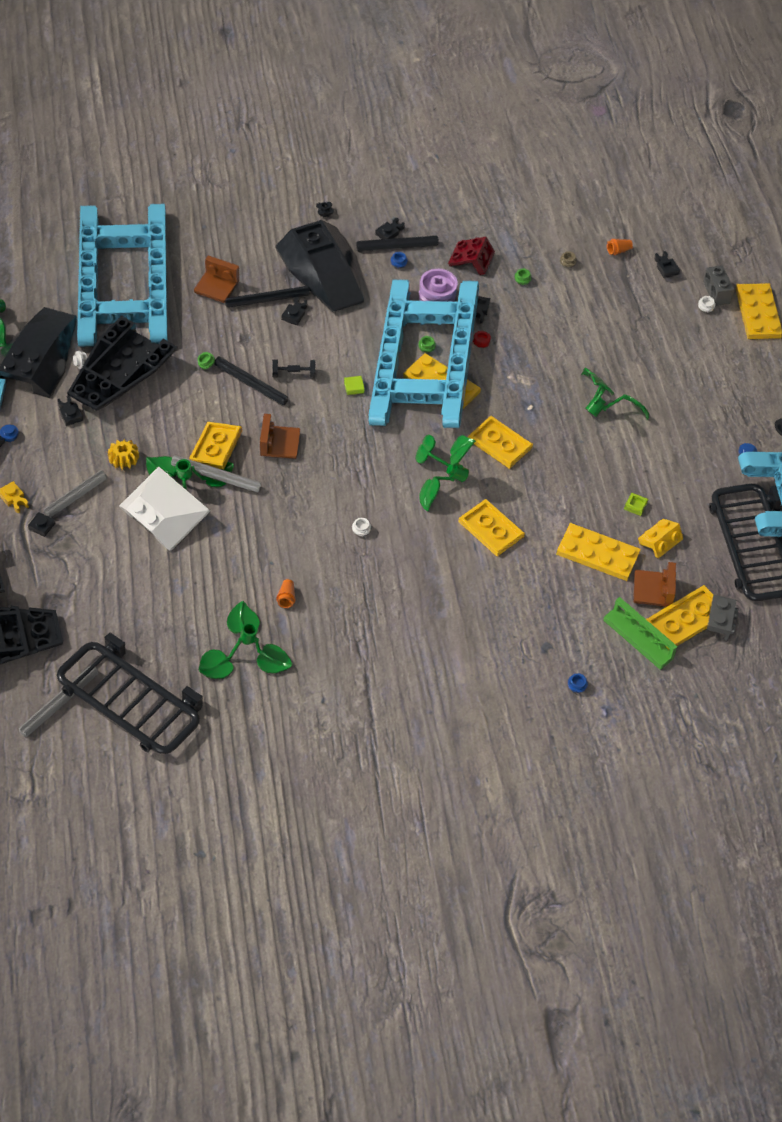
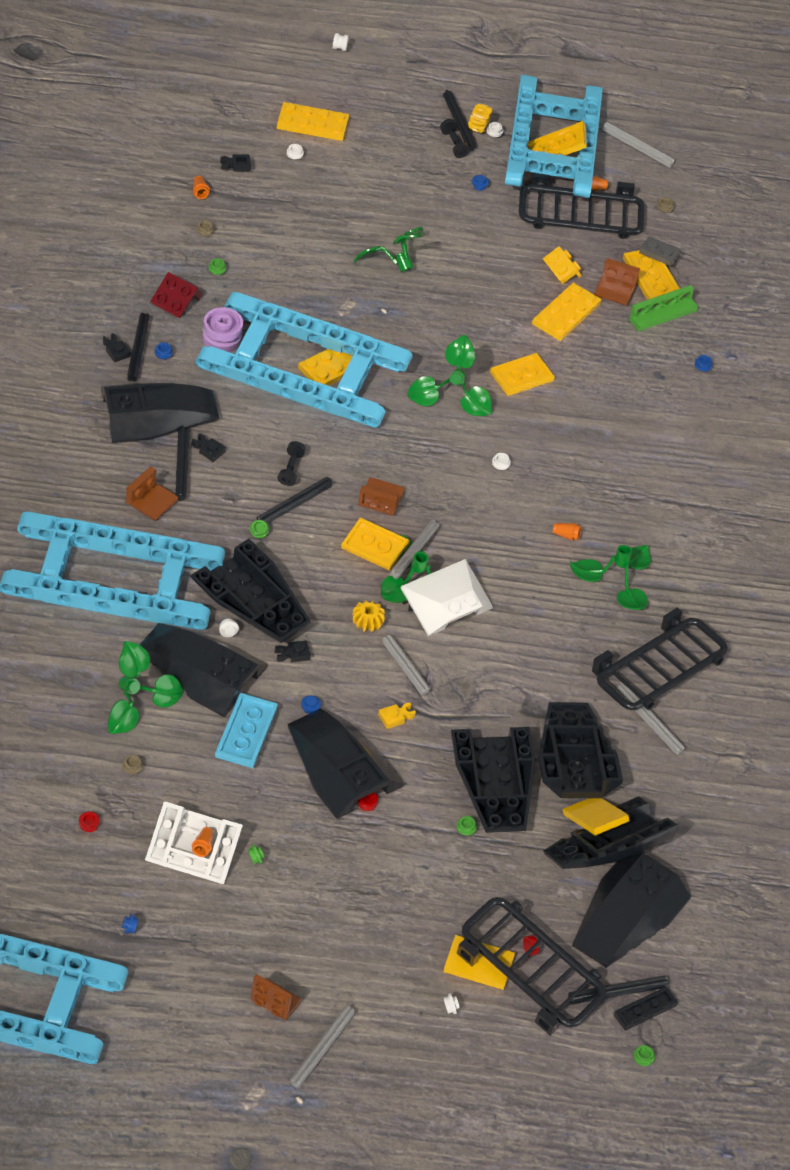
camera: 80 degrees left, 5 degrees down
(41, 524) = (437, 698): black plate -> none
(325, 209) = (68, 390): black plate -> none
(354, 385) = (322, 426): lime tile -> none
(427, 344) = (286, 359): bright green plate -> none
(500, 442) = (423, 340): yellow tile -> none
(636, 504) = (519, 272): lime tile -> none
(718, 285) = (277, 134): dark grey brick -> none

